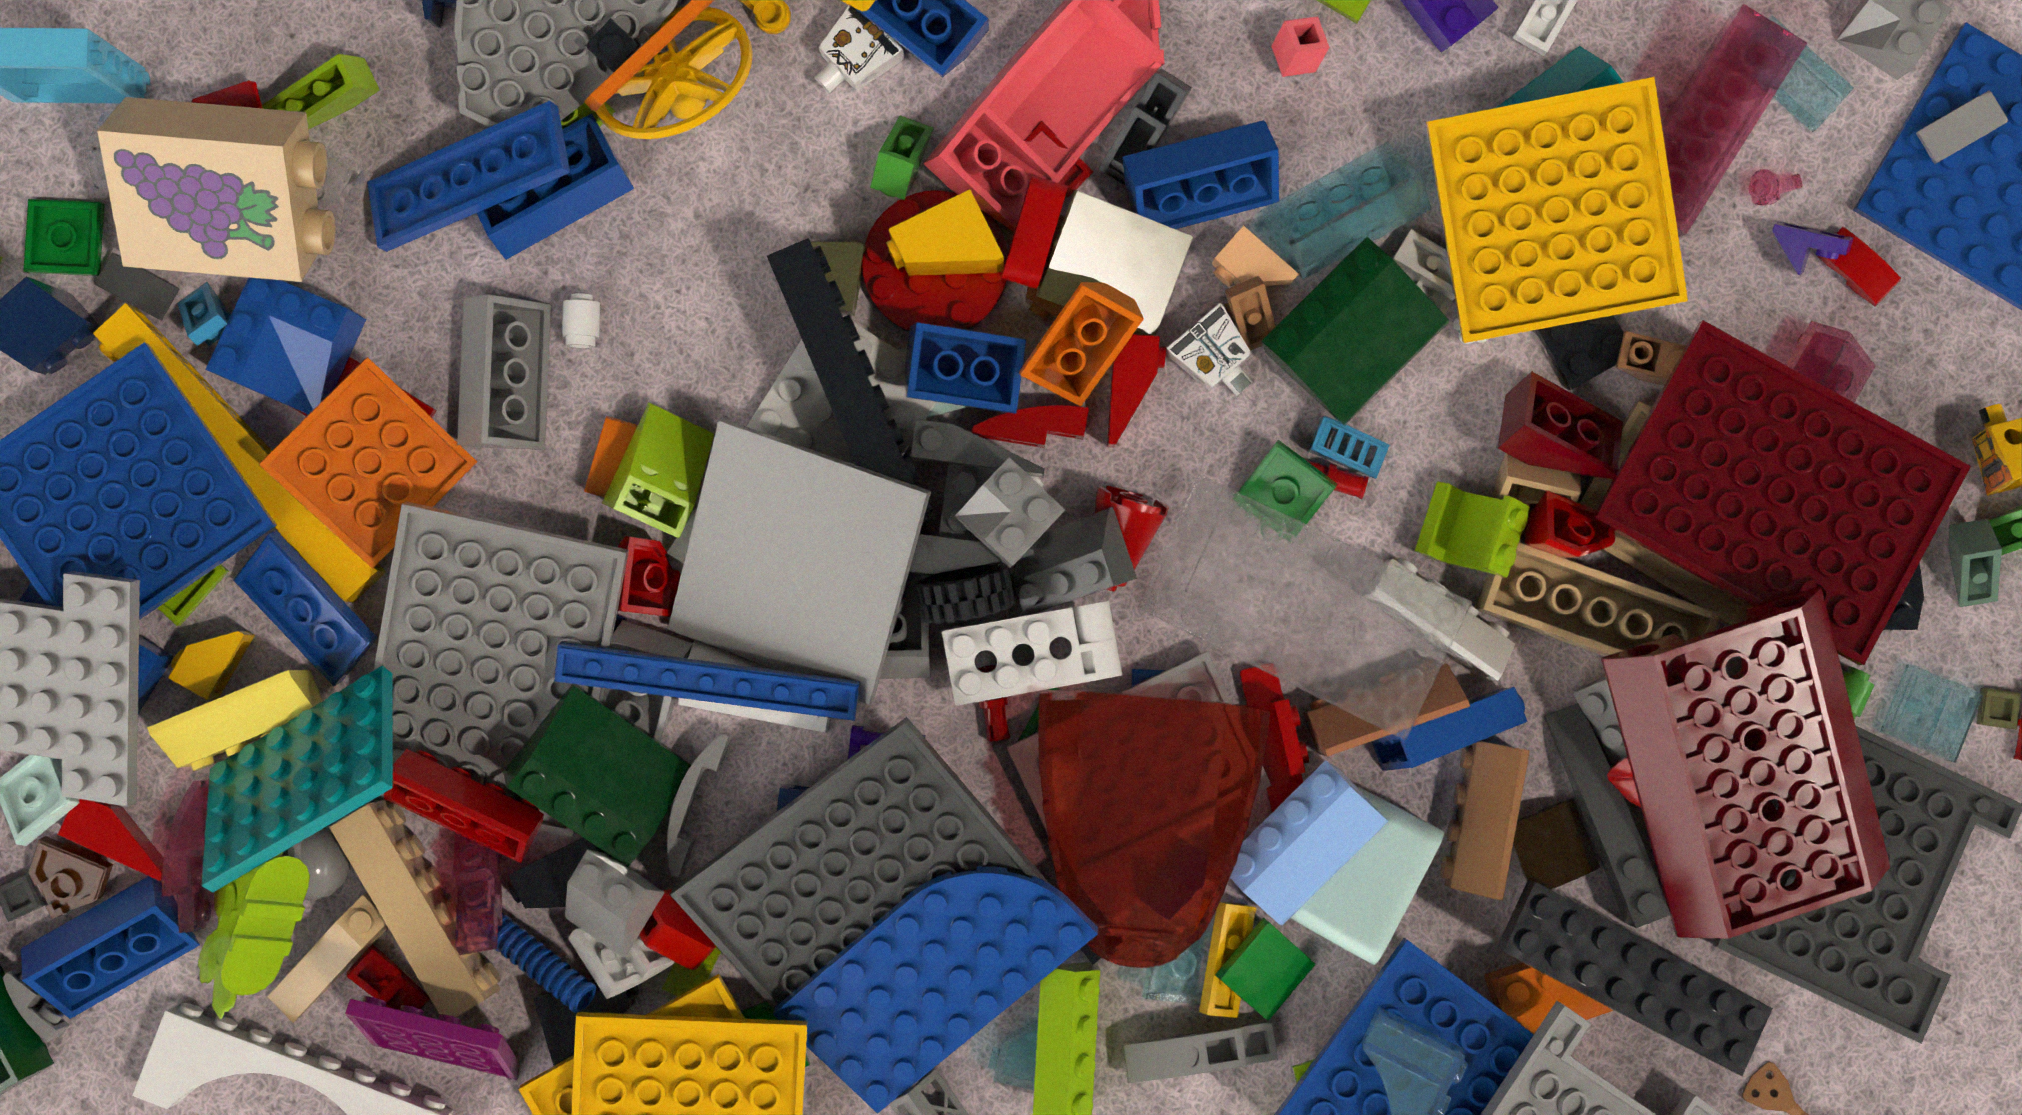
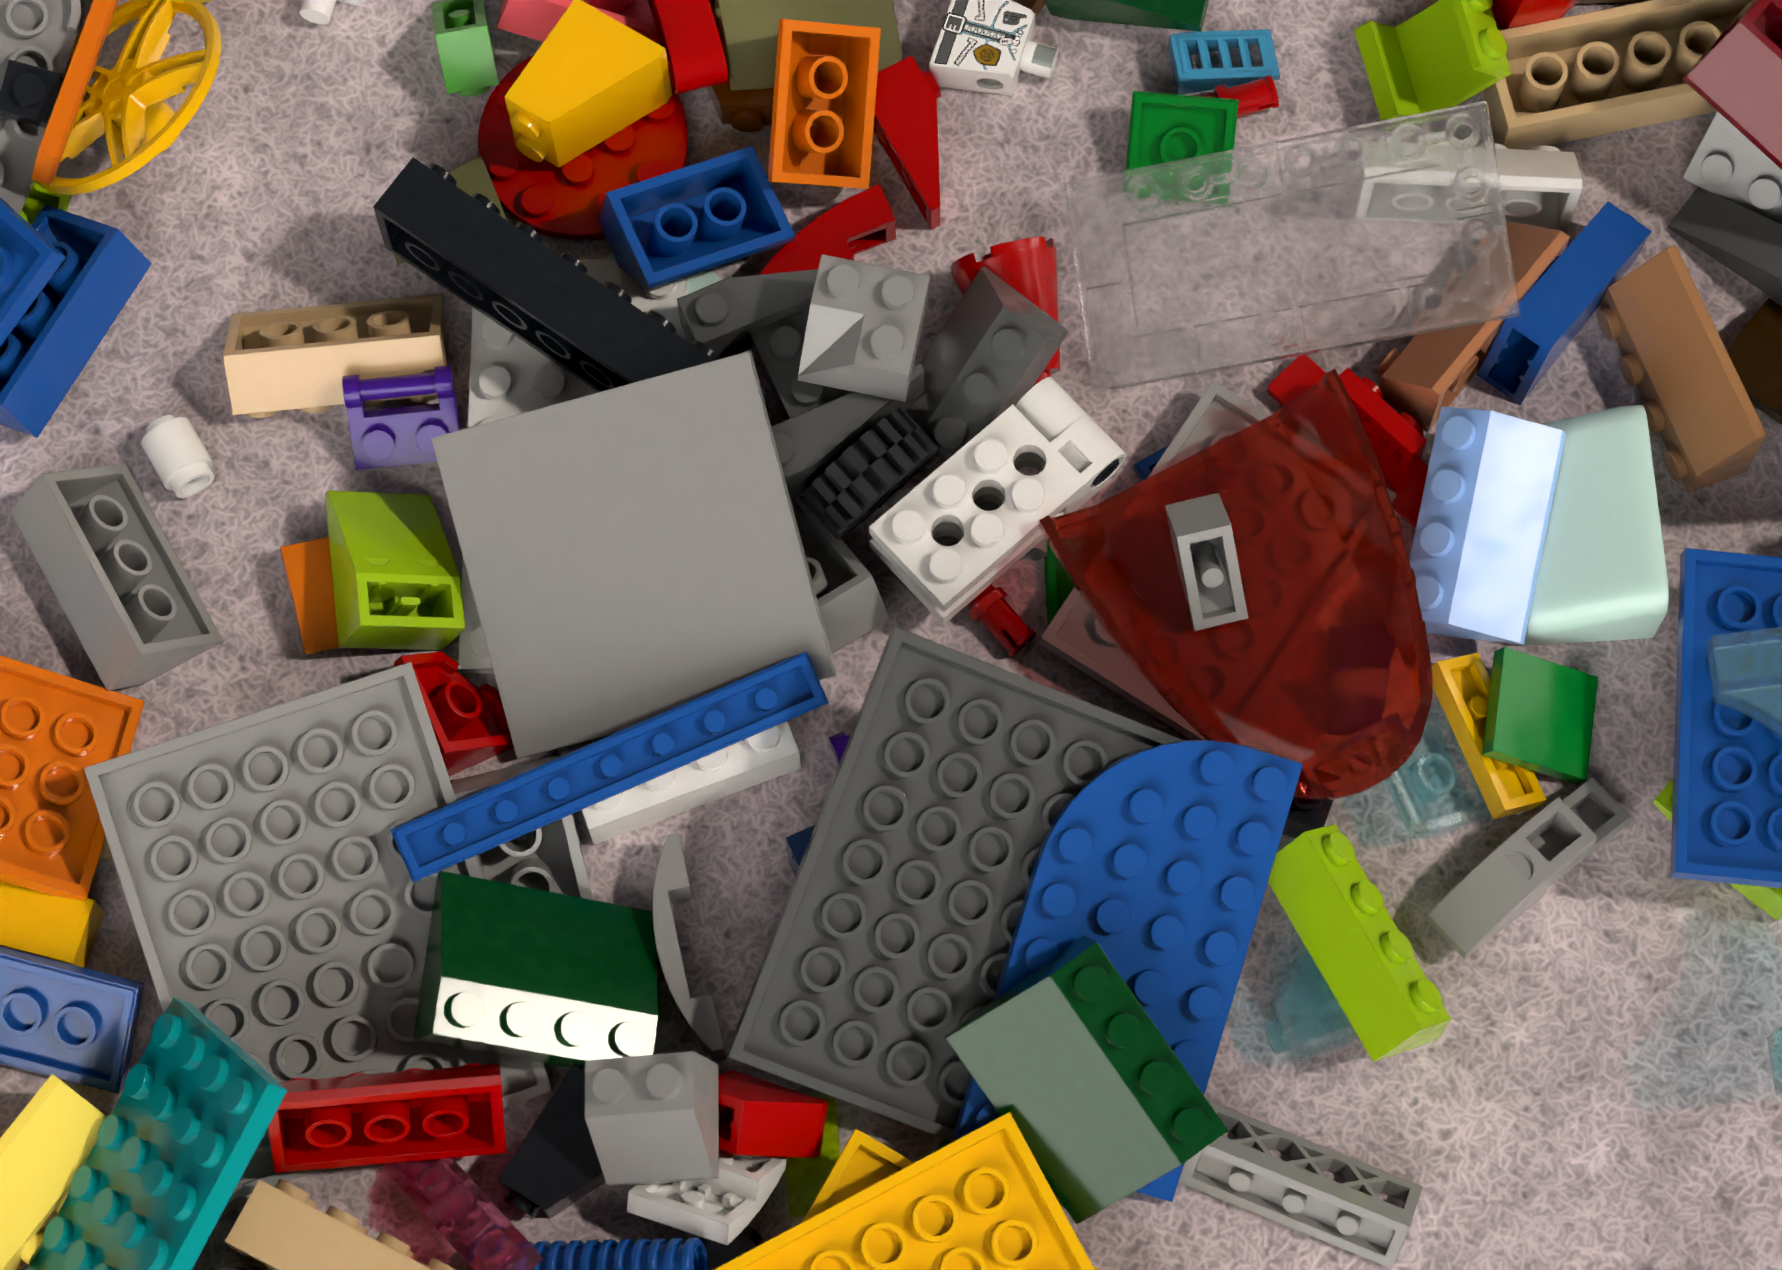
camera: 30 degrees left, 15 degrees down
(709, 313) = (303, 352): none -> tan slope
(720, 388) = (399, 433): none -> plate
(862, 1033) = (1086, 1080): none -> slope
(1127, 767) = (1207, 561): none -> light grey slope

